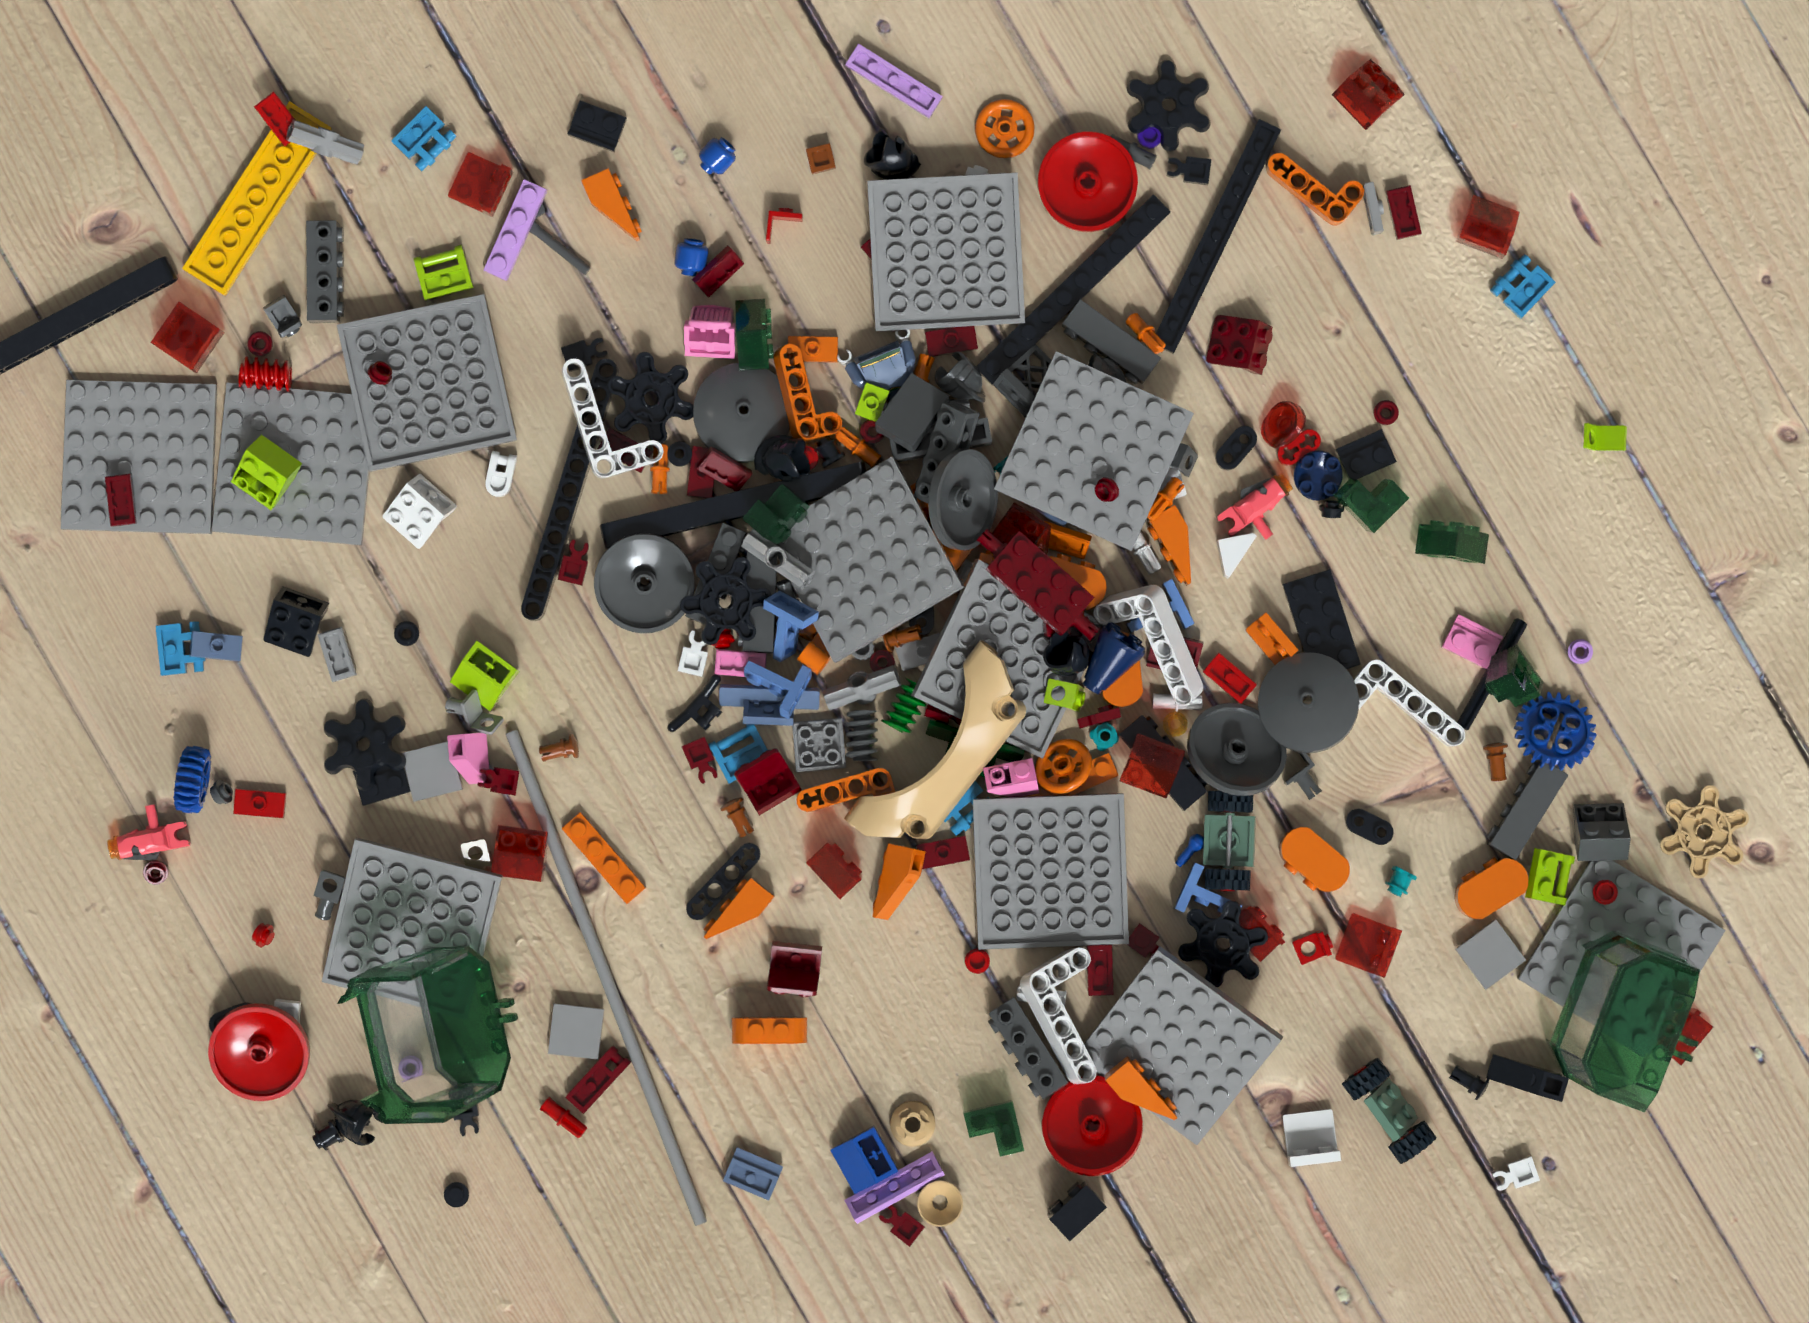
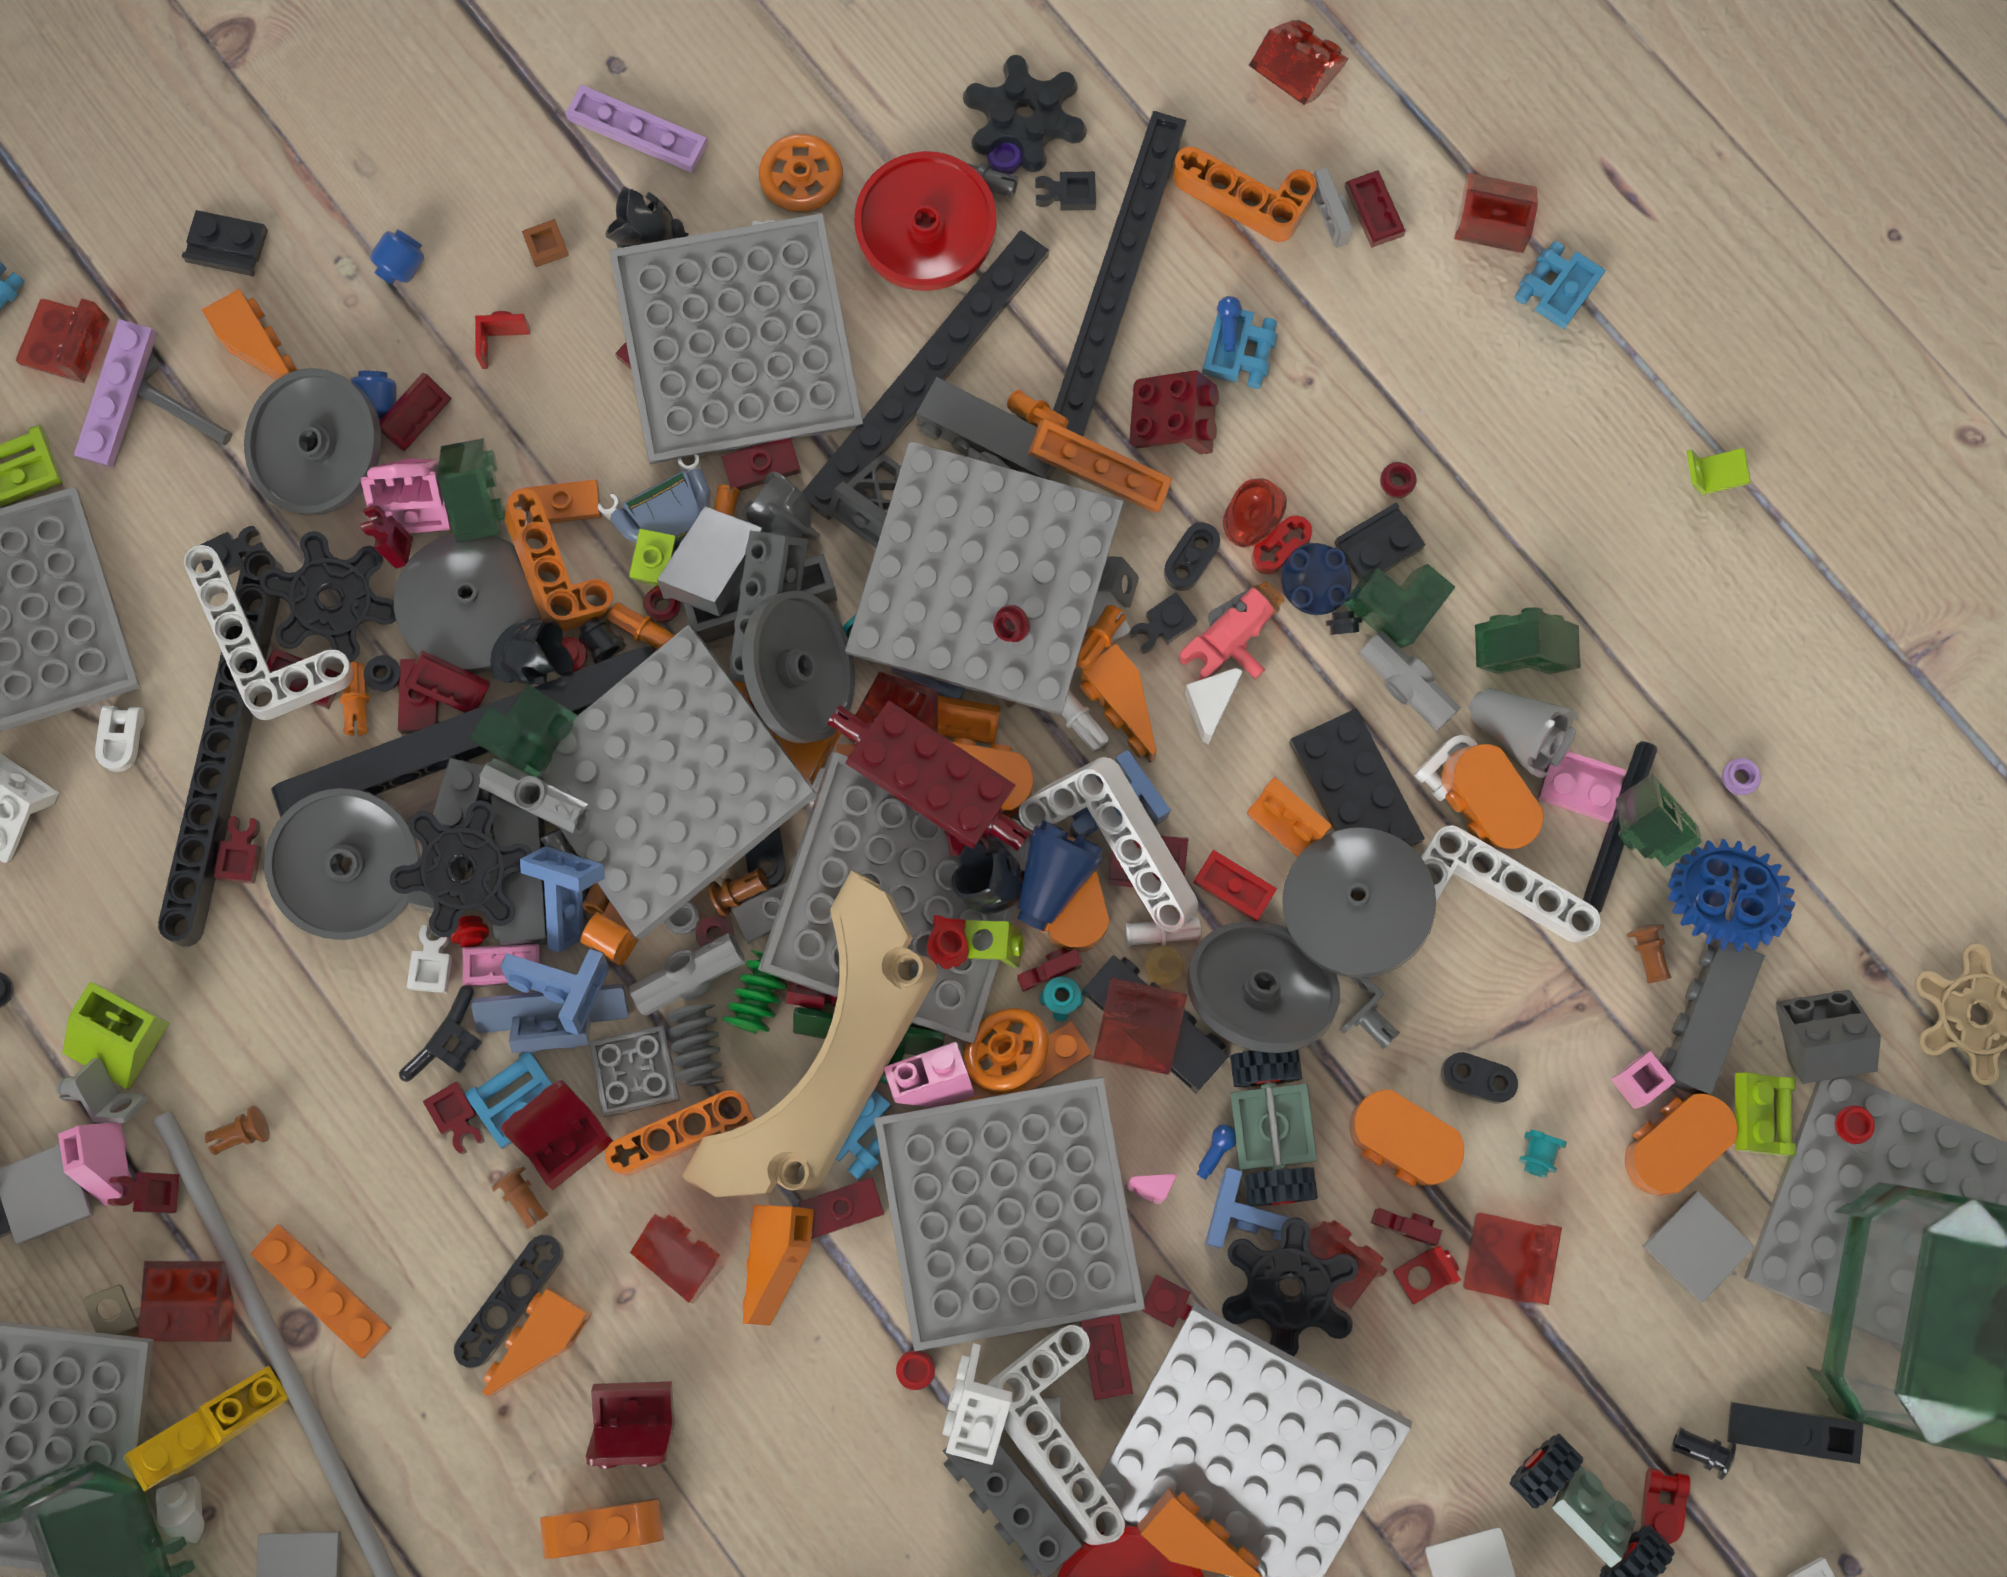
camera: 10 degrees left, 10 degrees down
(506, 980) = (181, 1509): none -> white plate
(529, 934) = (206, 1429): none -> yellow slope
(628, 281) = (312, 441): none -> dark grey dish
(695, 362) = (390, 536): none -> dark red plate
(1012, 993) = (977, 1415): none -> white bracket
(1035, 692) = (948, 942): none -> red animal
(1145, 868) = (1152, 1188): none -> bright pink slope
(1182, 378) = (1099, 466): none -> orange plate
(1213, 489) = (1167, 620): none -> black plate
(1285, 298) = (1227, 364): none -> dark azure plate
(1288, 278) = (1229, 310): none -> blue piece
(1310, 917) = (1416, 1228): none -> dark red plate
(1368, 555) = (1409, 680): none -> light grey piece
(1392, 611) = (1427, 771): none -> white plate
(1408, 644) = (1491, 797): none -> orange brick
(1435, 1118) = (1665, 1518): none -> red plate
(1439, 601) = (1525, 727): none -> light grey cone
(1473, 844) = (1642, 1080): none -> bright pink brick

